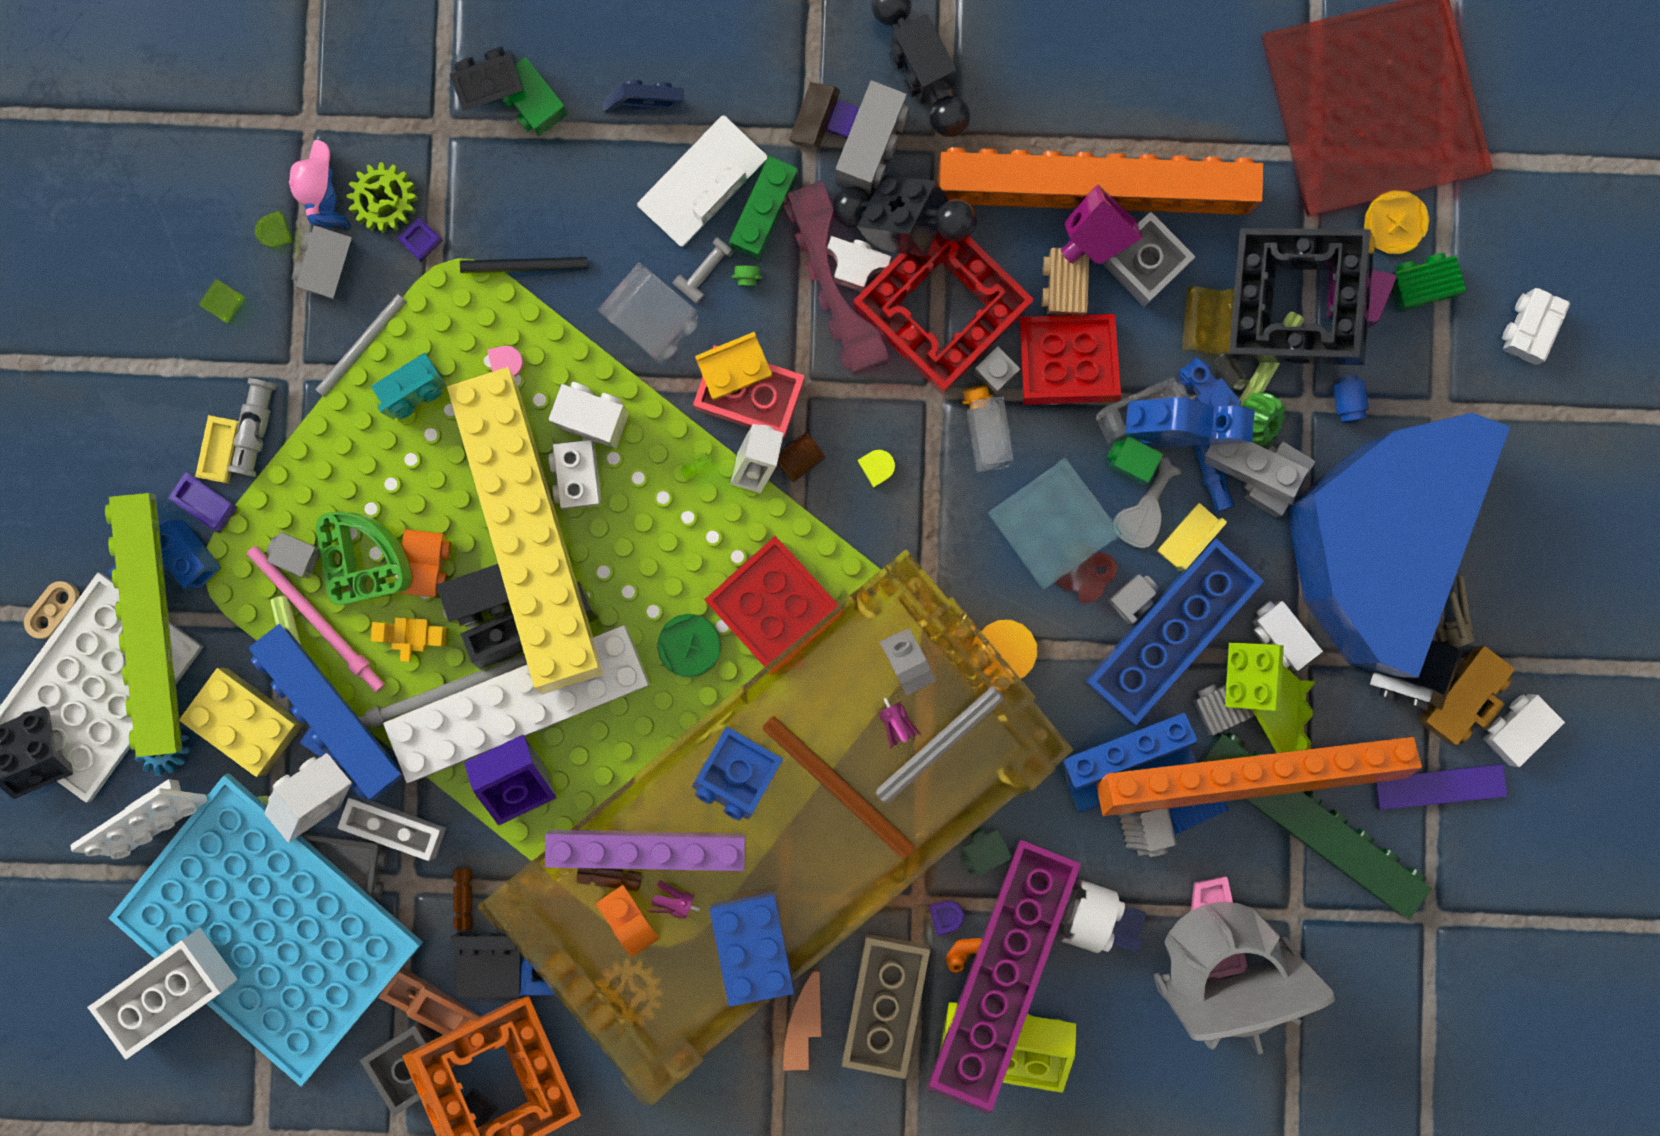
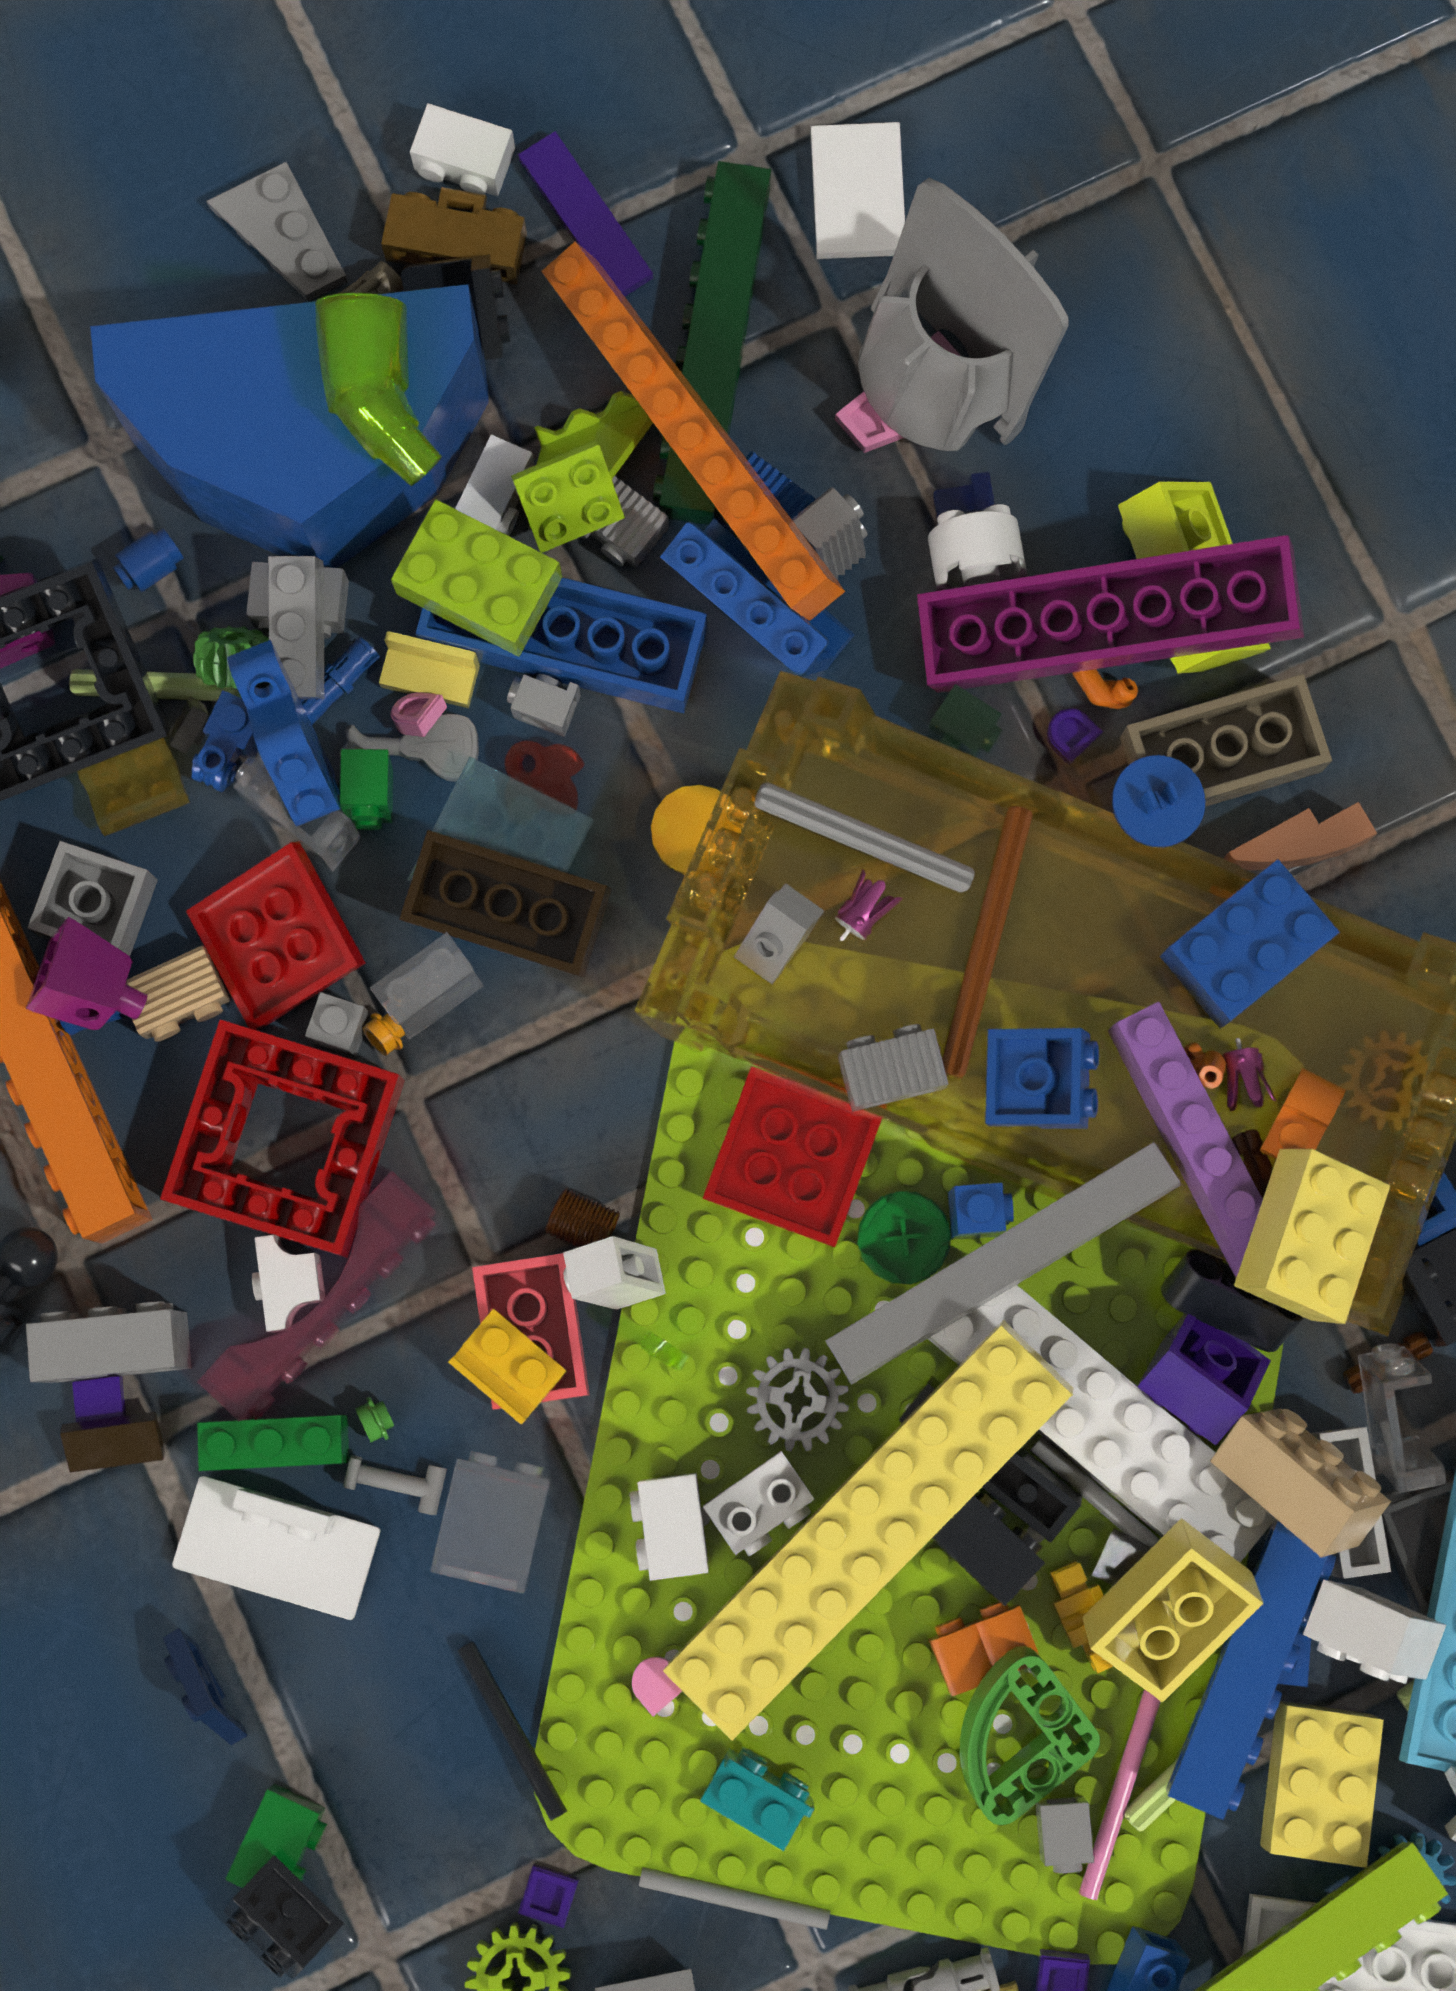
camera: 120 degrees left, 5 degrees down
(381, 682) = (1172, 1610): none -> light yellow brick
(399, 875) = (1402, 1460): none -> clear panel
(415, 801) = (1301, 1480): none -> tan brick
(428, 673) = (1118, 1557): none -> clear smoke plate
(552, 884) = (1312, 1235): none -> light yellow brick
(556, 810) = (1207, 1291): none -> black beam
(616, 542) = (819, 1403): none -> light grey gear
(638, 693) = (1003, 1263): none -> light grey tile
(678, 697) = (979, 1211): none -> blue brick
(692, 881) = (1208, 1065): none -> orange arm
(789, 686) = (892, 1068): none -> light grey brick
(871, 943) = (1158, 801): none -> blue piece
(877, 466) = (542, 1116): neon yellow tile -> none
(904, 214) = (190, 1244): black brick -> none
(1015, 507) = (505, 903): none -> dark brown brick
(1167, 516) = (417, 713): none -> bright pink tile
(1230, 592) = (477, 577): none -> lime brick
(1370, 970) = (857, 189): none -> white tile
(1385, 579) = (366, 376): none -> clear neon green piece
(1529, 590) = (280, 225): none -> light grey wing

